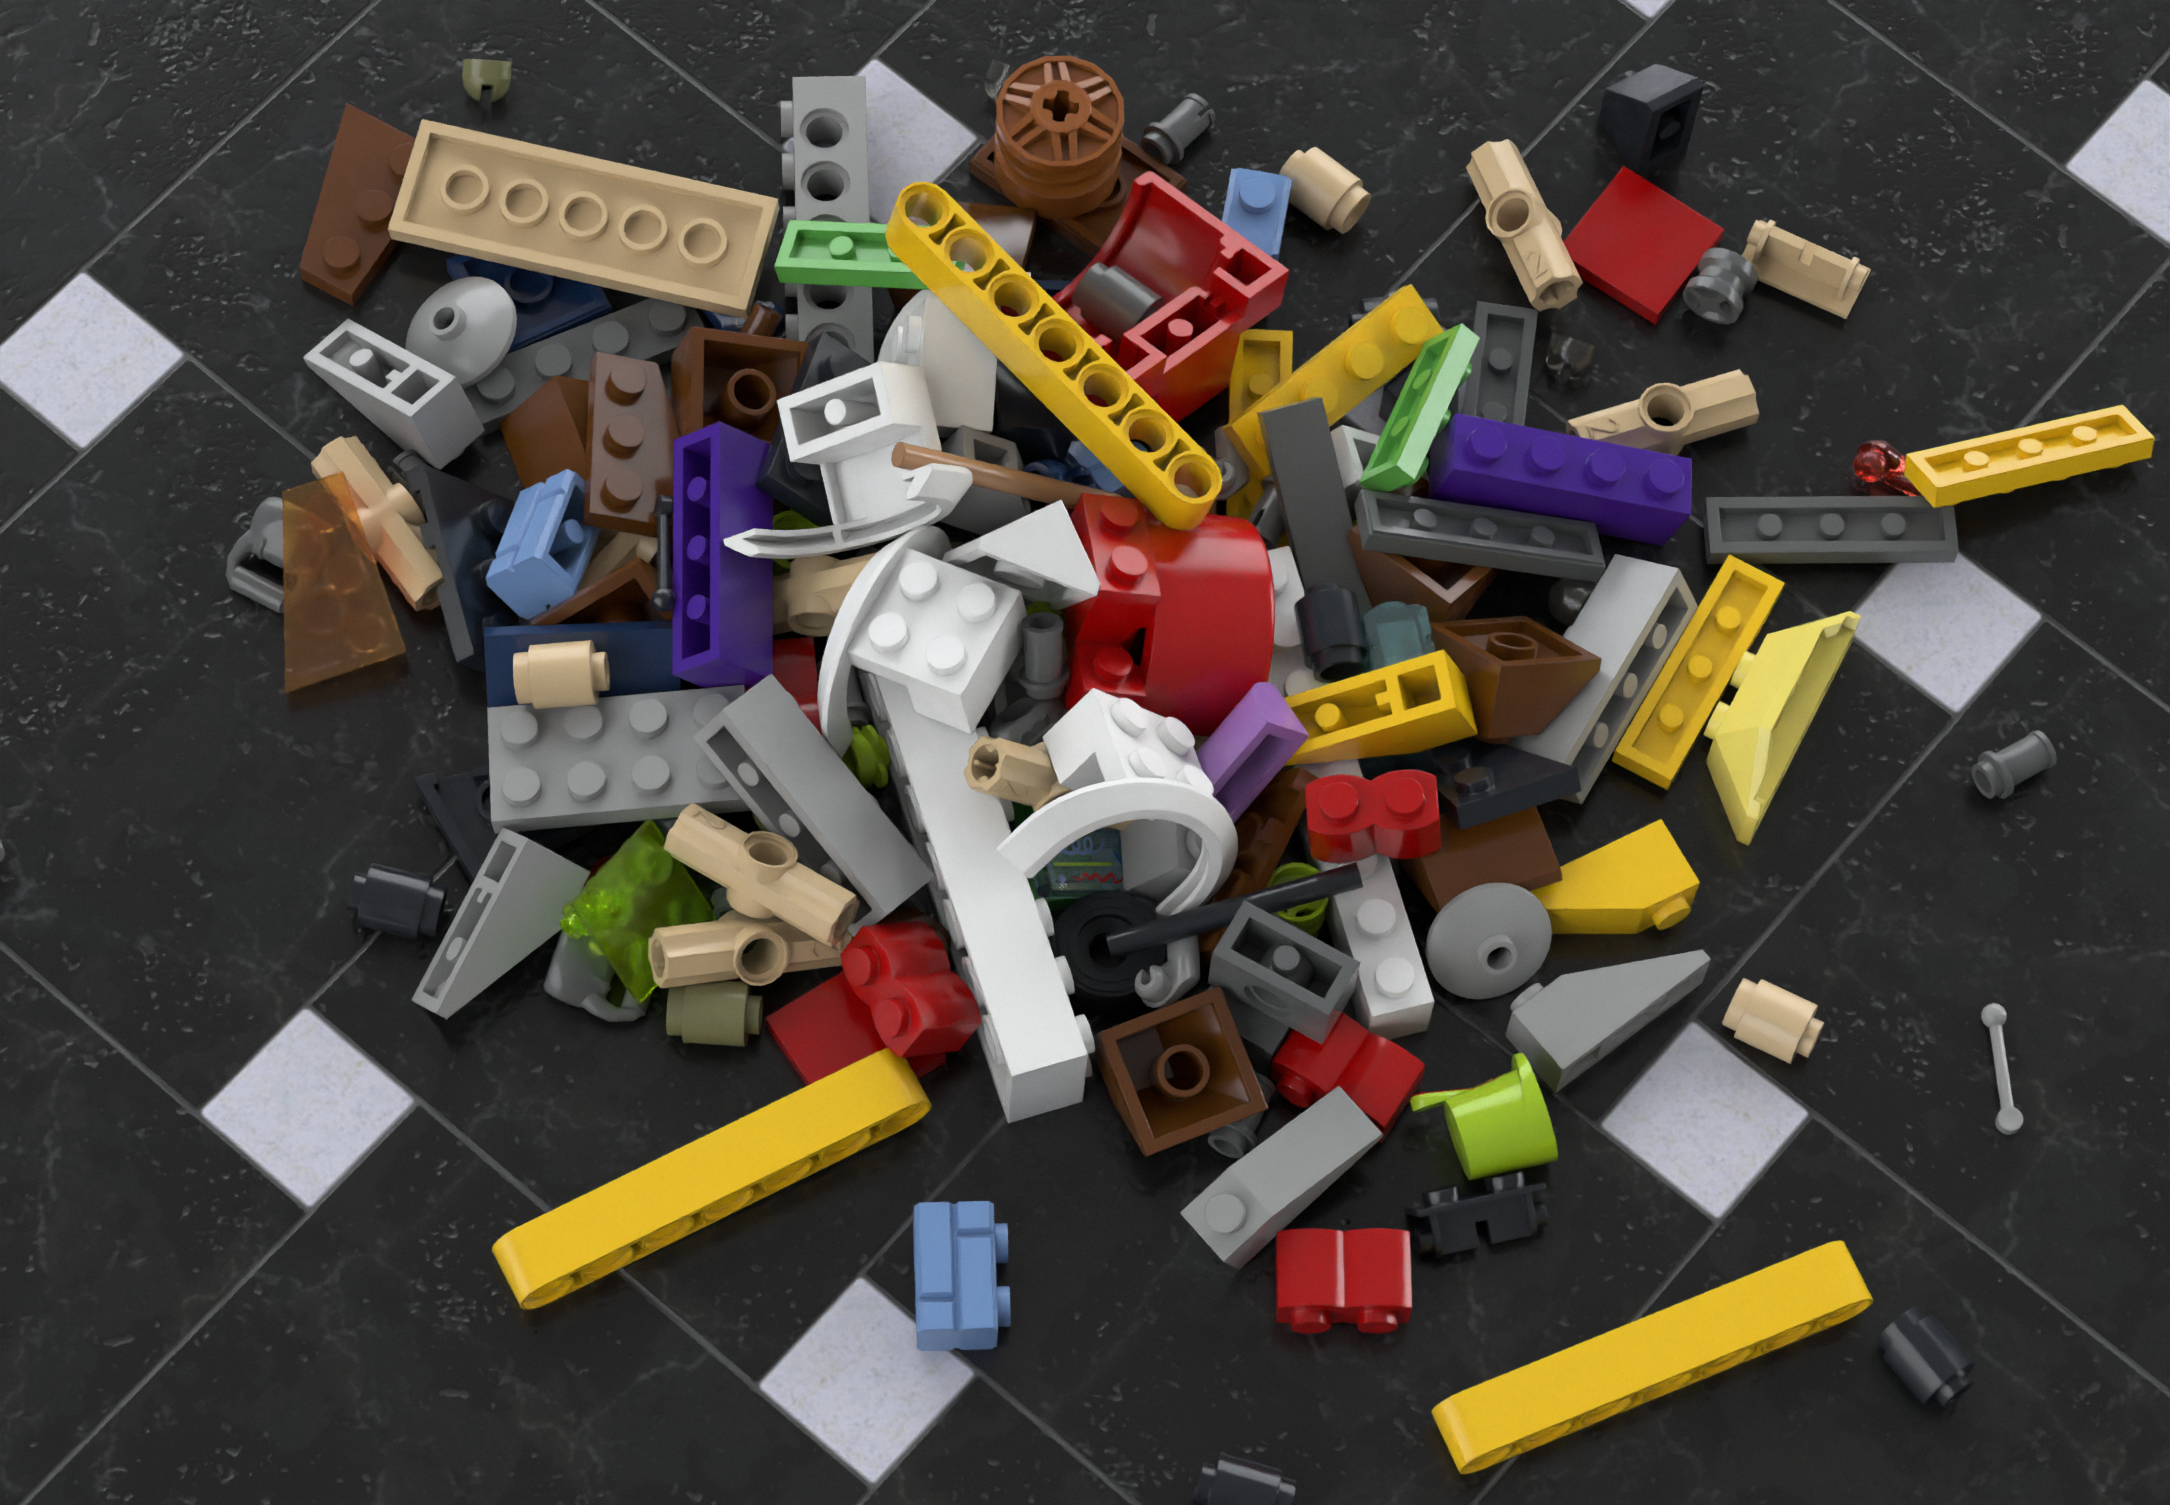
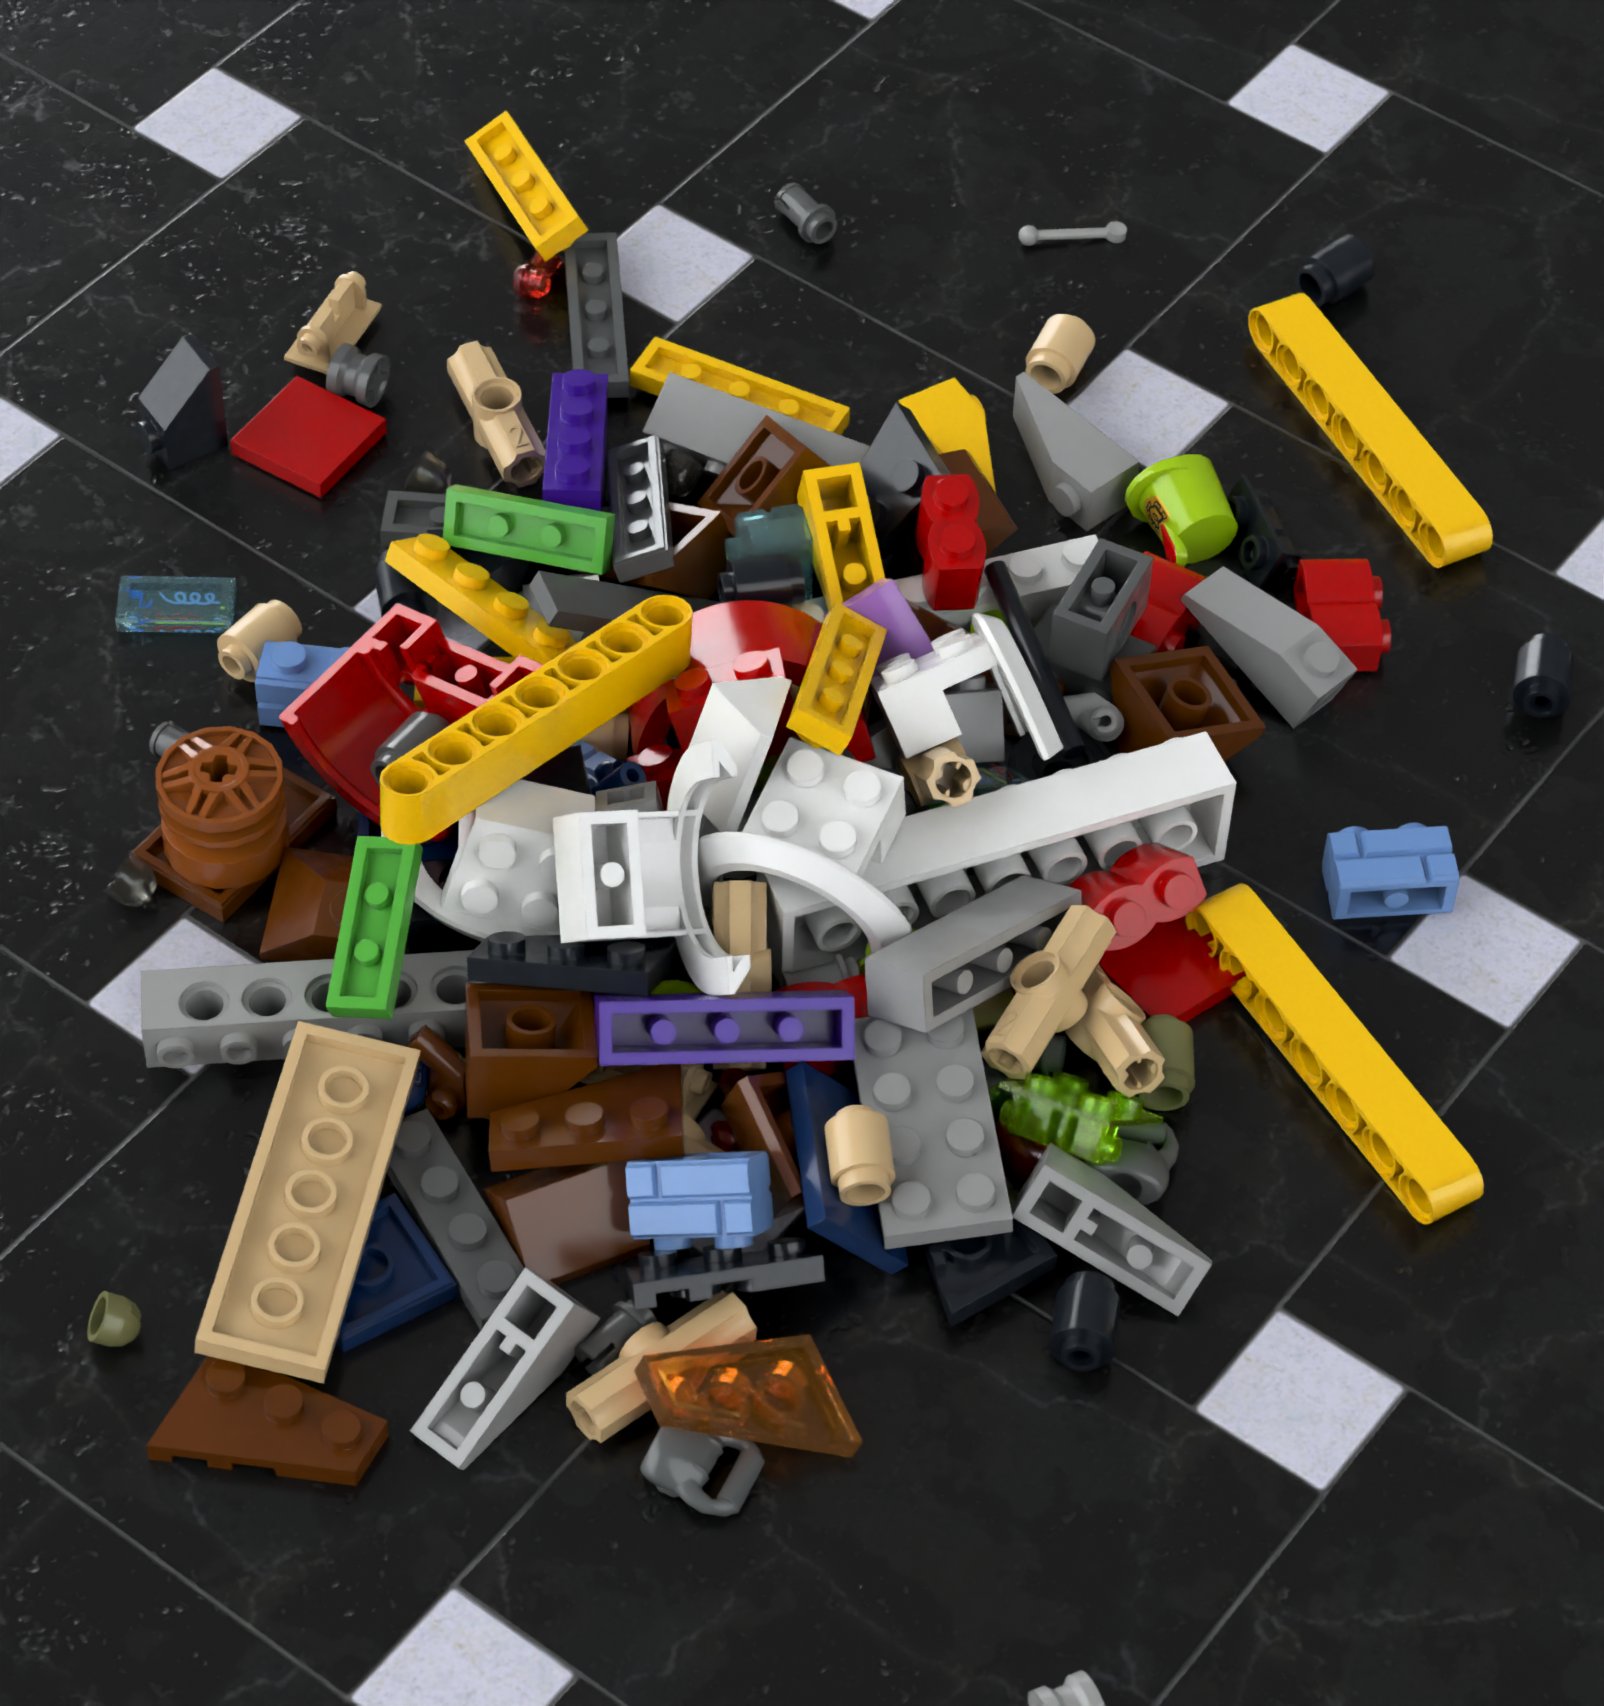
camera: 90 degrees left, 15 degrees down
(464, 328) = (397, 1306): light grey dish -> none
(663, 597) = (671, 1077): black hinge -> none
(995, 476) = (654, 775): medium nougat bar -> none
(1117, 651) = (836, 679): none -> yellow plate
(1392, 123) = (175, 604): none -> clear light blue tile
(1475, 926) = (1024, 506): light grey dish -> none
(1524, 225) = (336, 480): tan piece -> none
(1771, 714) = (787, 334): light yellow wedge -> none

